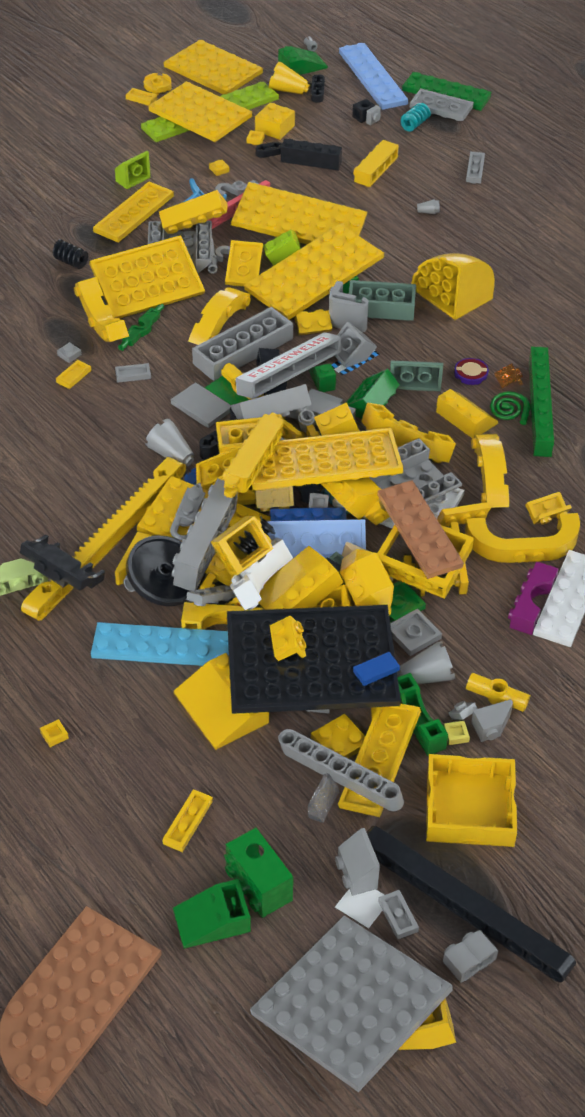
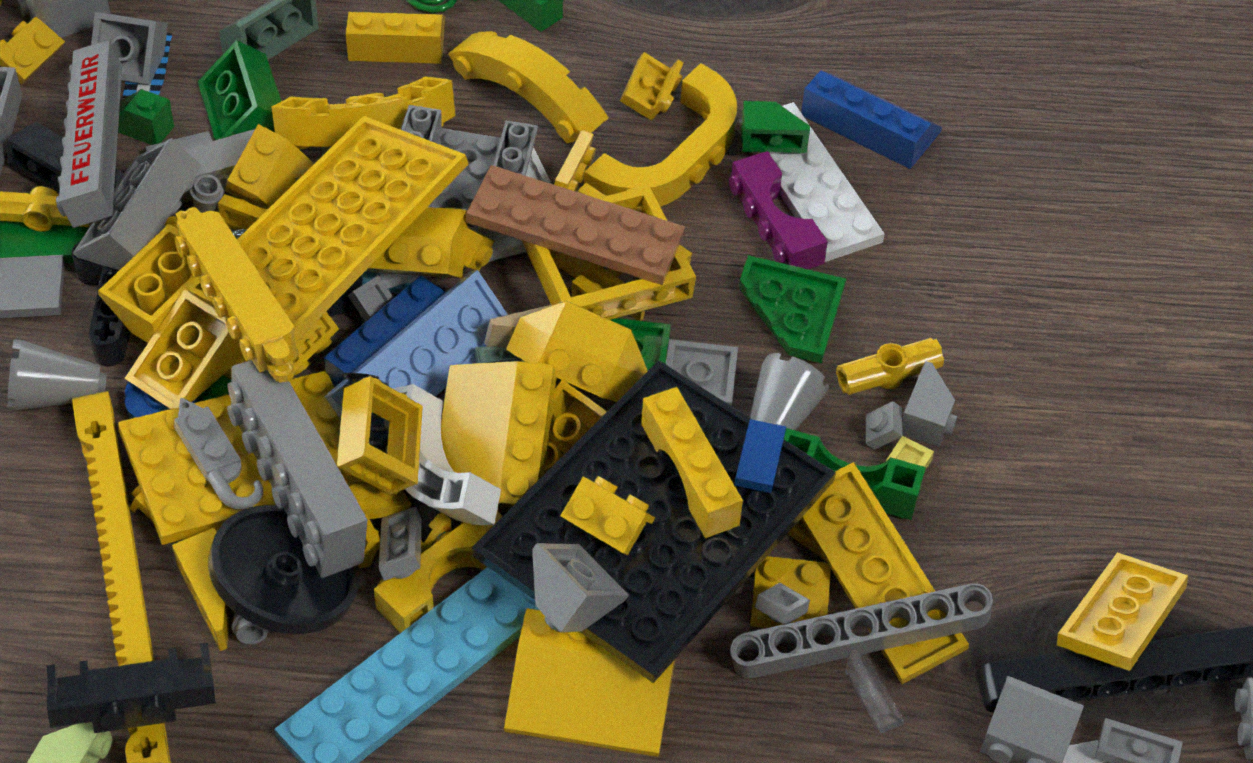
camera: 50 degrees left, 5 degrees up
(239, 650) = (572, 587): none -> light grey slope
(322, 733) = (782, 604): none -> light grey plate
(334, 657) = (708, 487): none -> yellow arch
(460, 858) = (1122, 611): none -> yellow plate
(471, 800) = (1033, 529): yellow tile -> none
(492, 638) = (793, 304): none -> green plate
(570, 559) = (772, 129): none -> green slope

